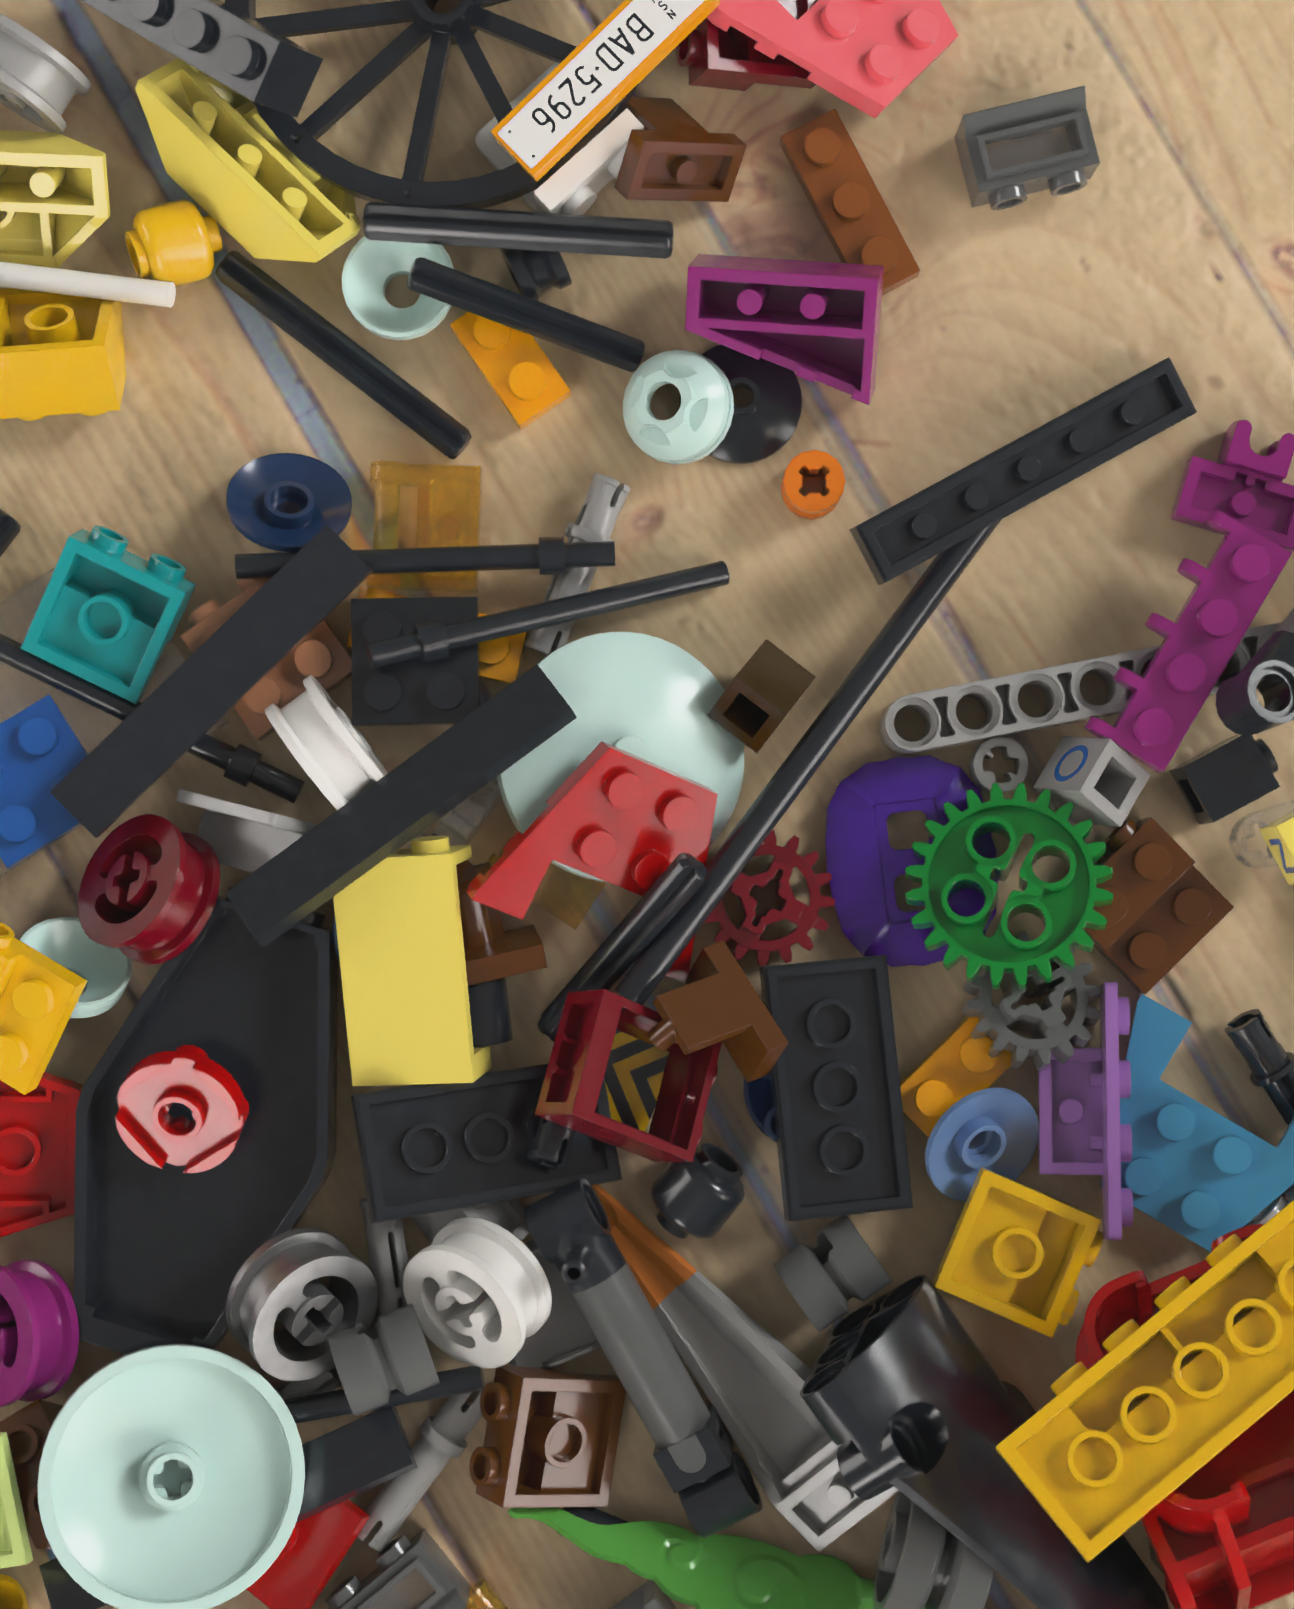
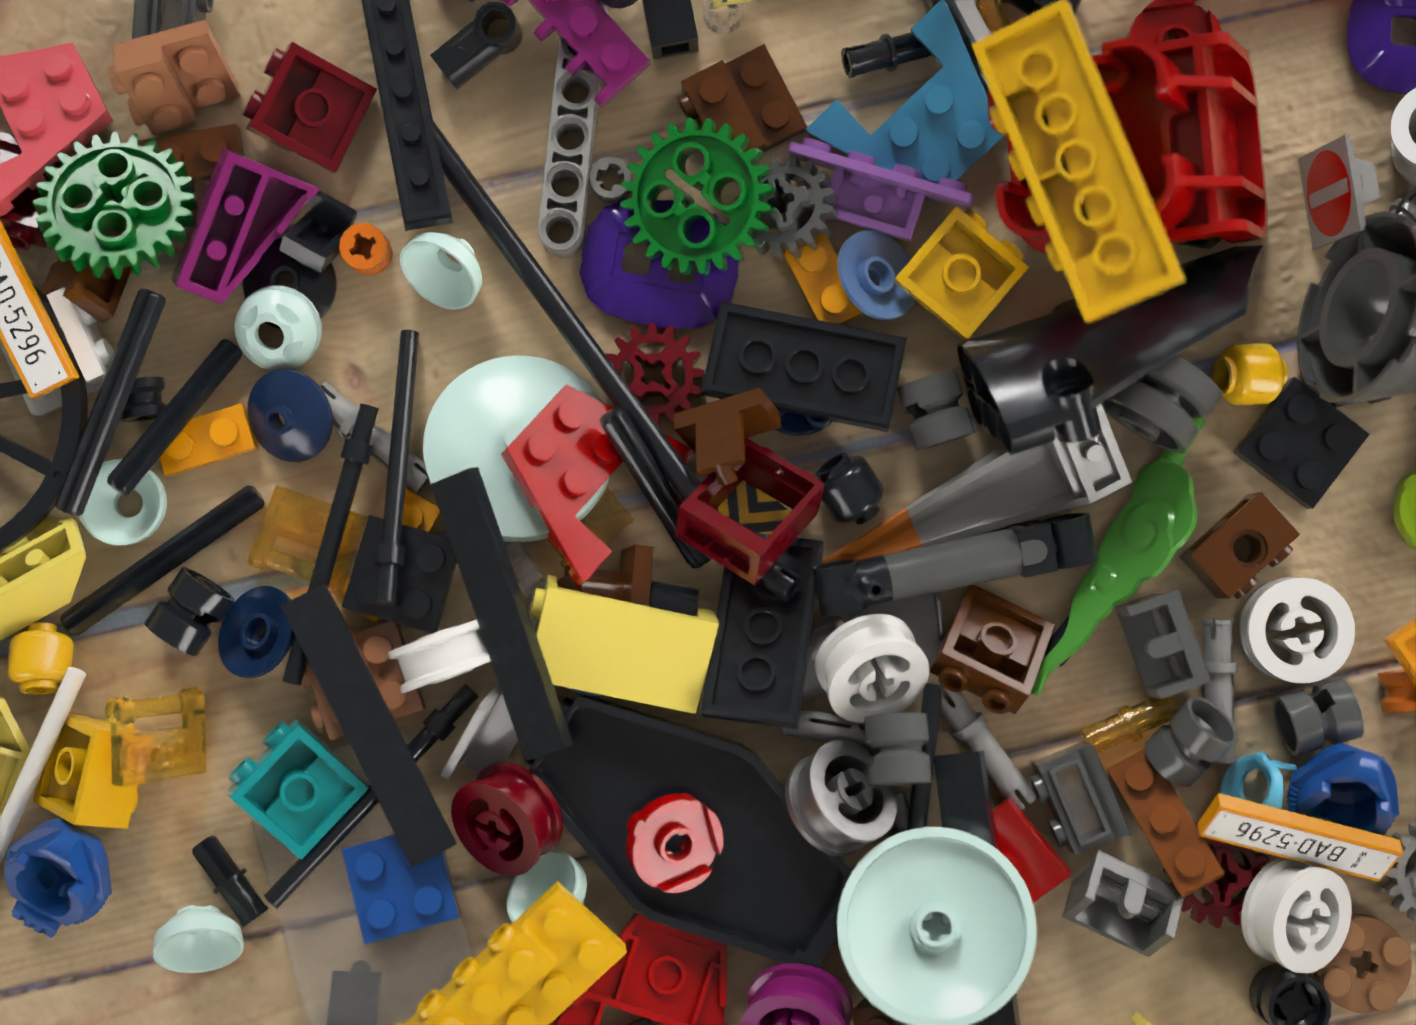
camera: 70 degrees left, 0 degrees up
(102, 431) = (159, 752): none -> clear yellow plate
(290, 410) = (189, 611): none -> black wheel
(586, 470) = (304, 410): none -> dark blue dish
(761, 695) = (506, 332): dark brown brick -> none
(767, 157) = (115, 205): none -> green gear
(806, 587) = (436, 275): none -> light aqua piece
(812, 419) = (317, 234): none -> black bracket
(953, 175) = (172, 76): none -> nougat plate
(970, 356) = (309, 106): none -> dark red plate
(1095, 778) = (639, 111): light grey brick -> none
(1109, 540) = (472, 48): none -> black piece

